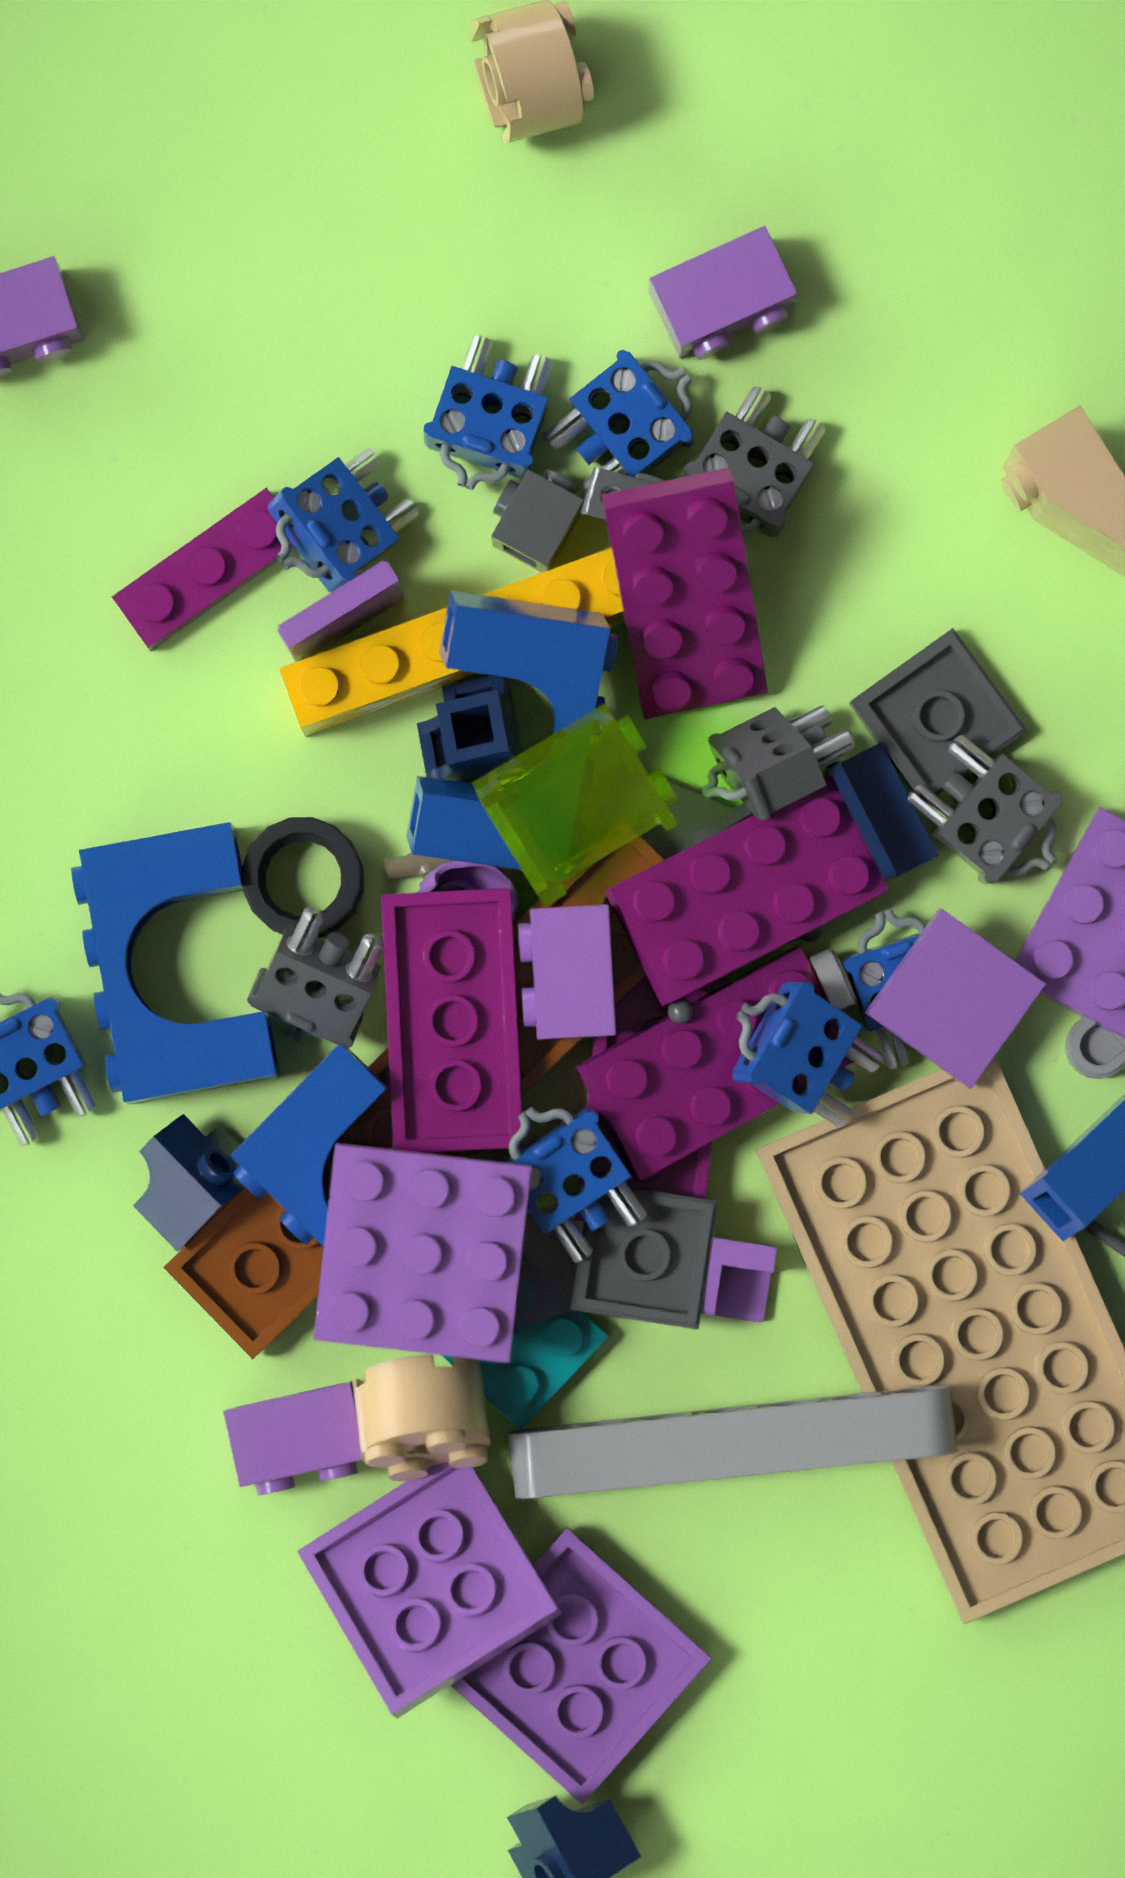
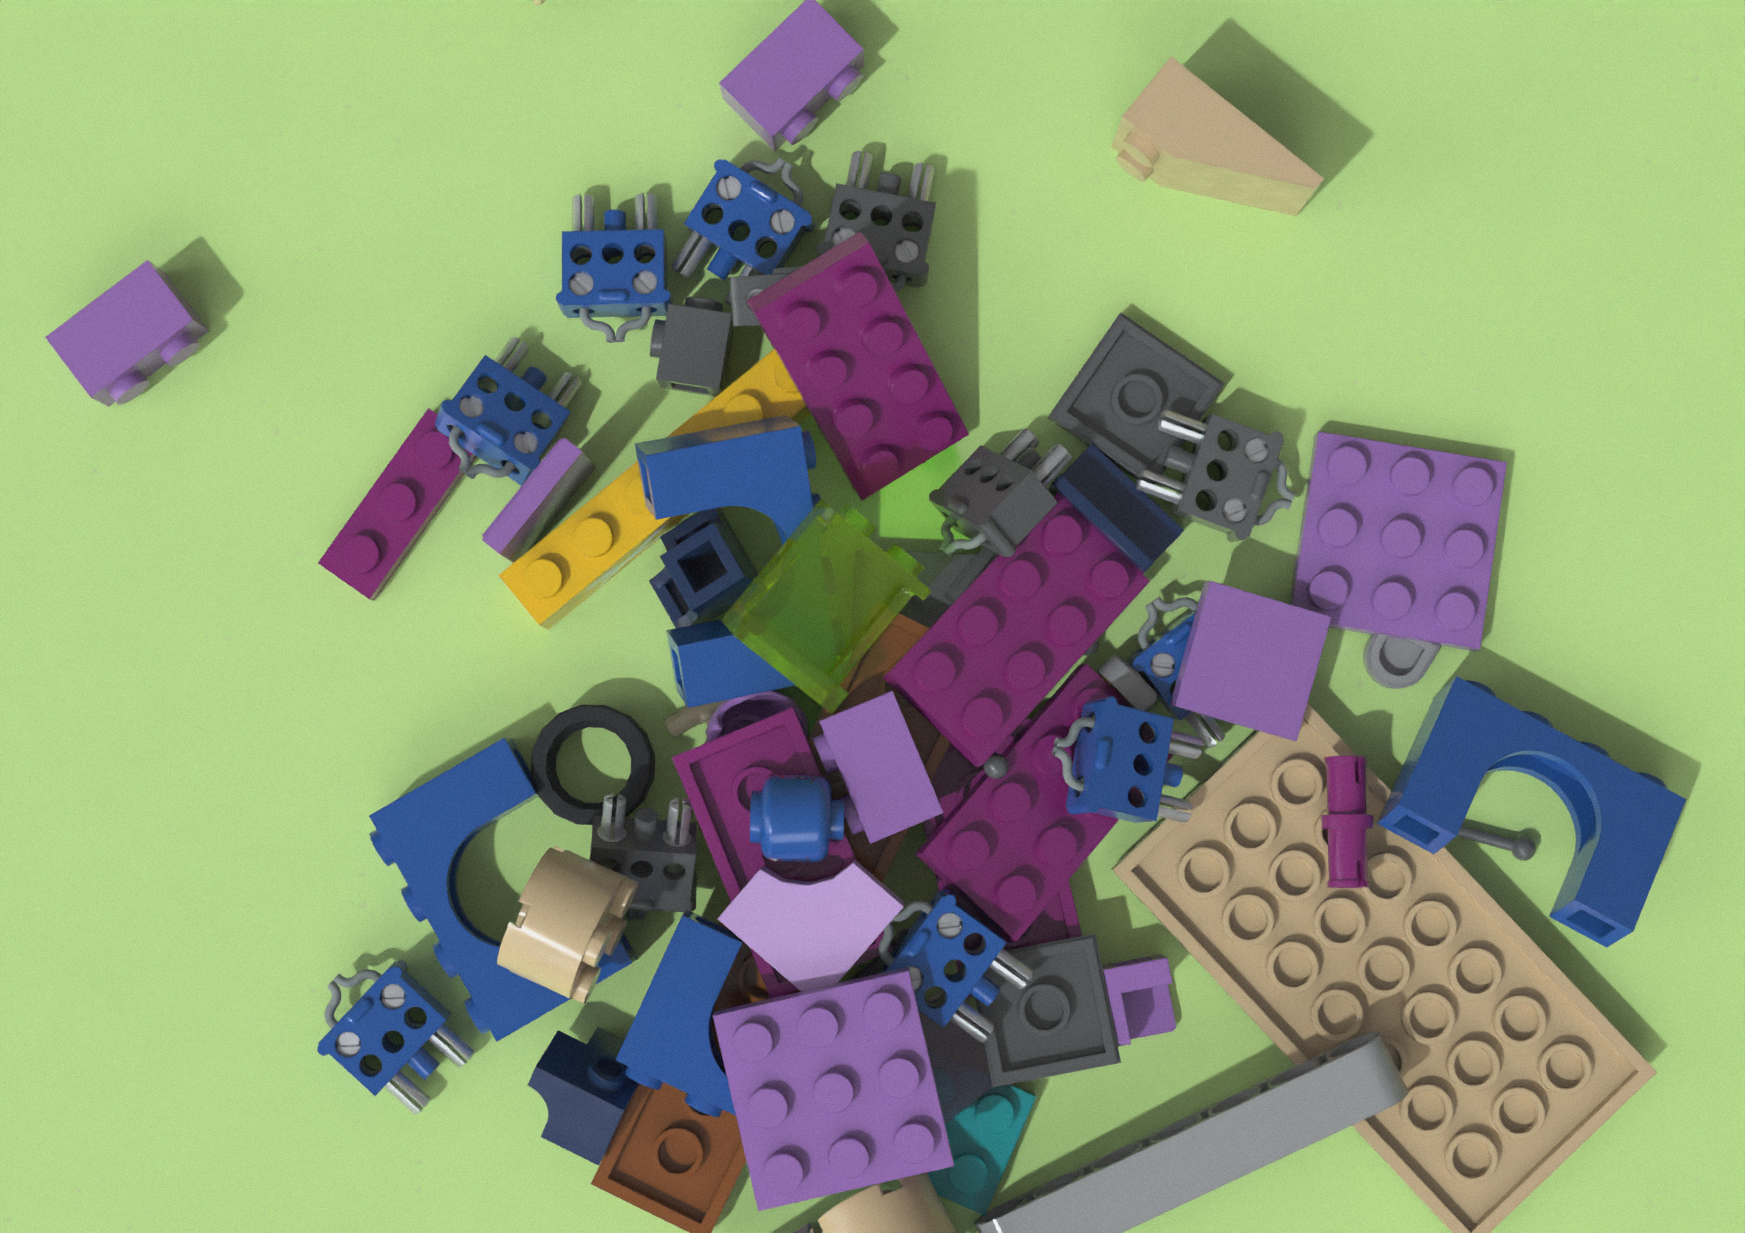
camera: 20 degrees left, 0 degrees up
(230, 1012) = (567, 923): none -> tan brick
(457, 1098) = (812, 927): none -> lavender tile
(476, 990) = (795, 818): none -> blue head
(991, 1181) = (1347, 822): none -> magenta pin

